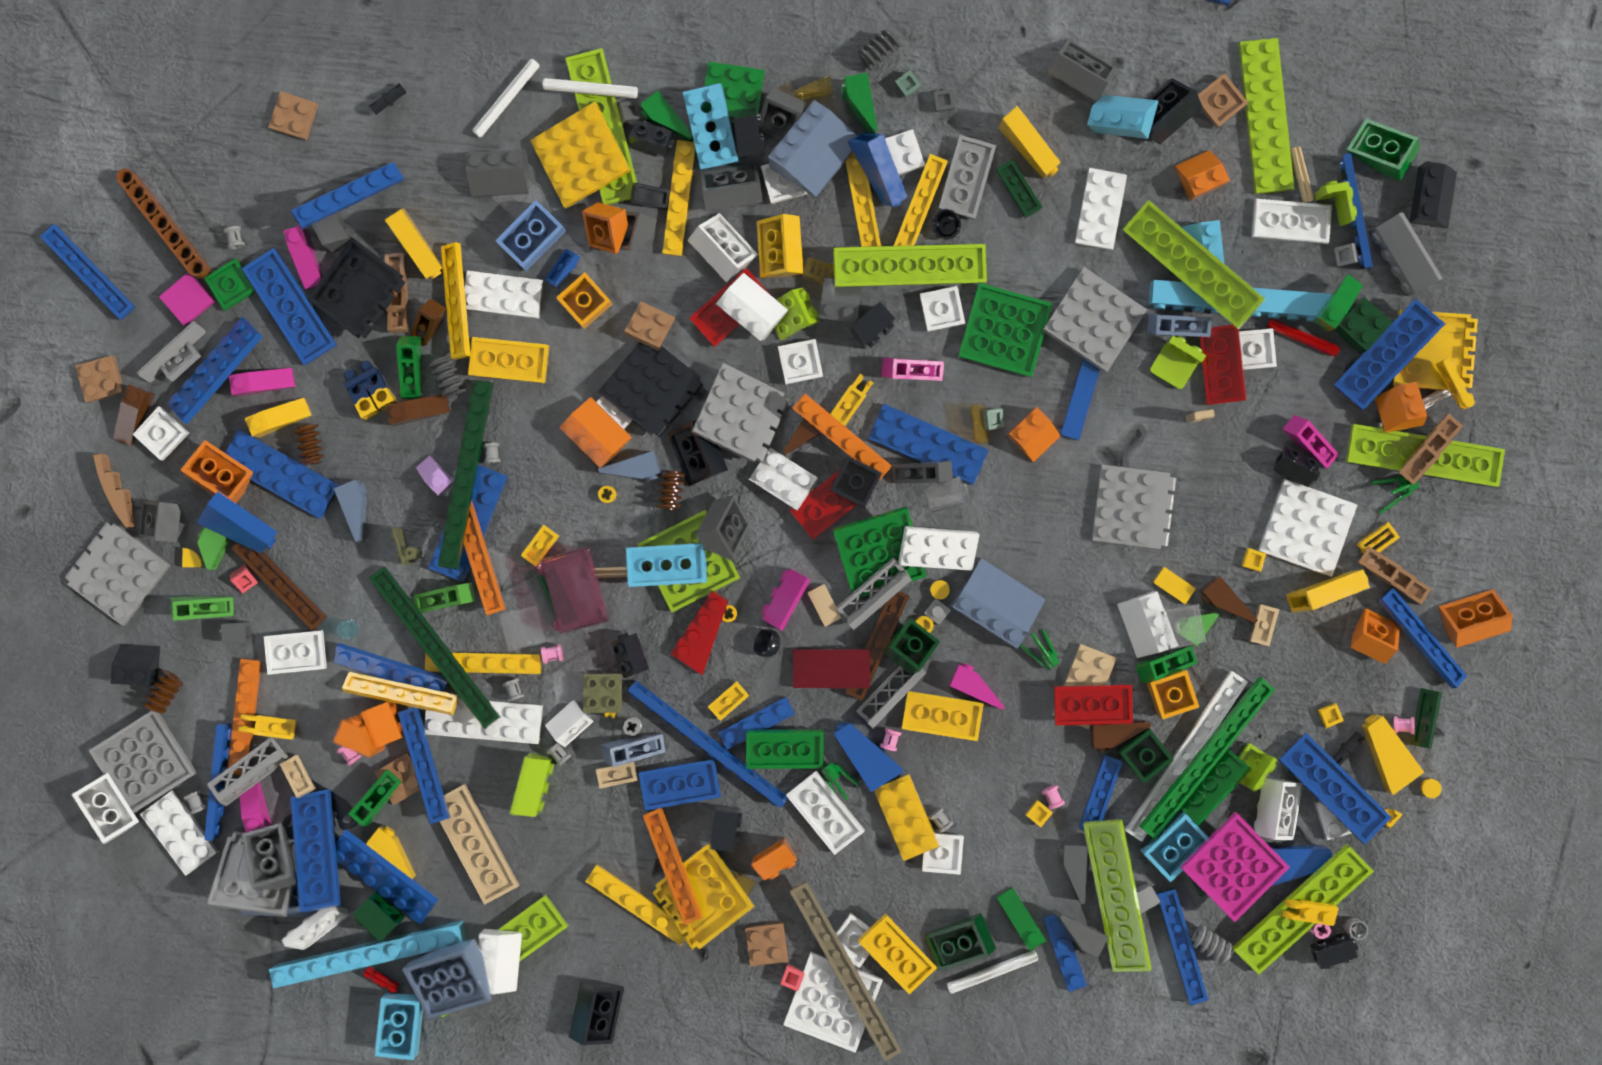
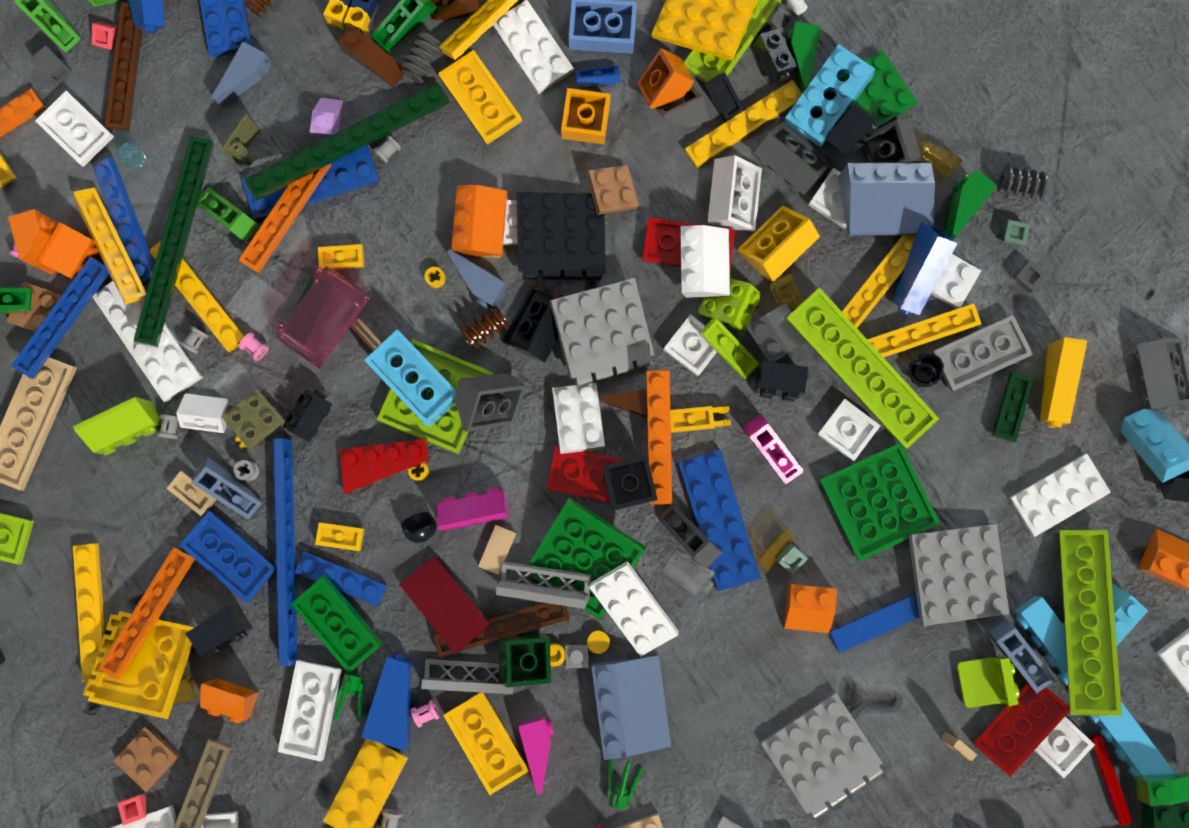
camera: 60 degrees right, 5 degrees down
(822, 340) = (729, 348): none -> lime tile

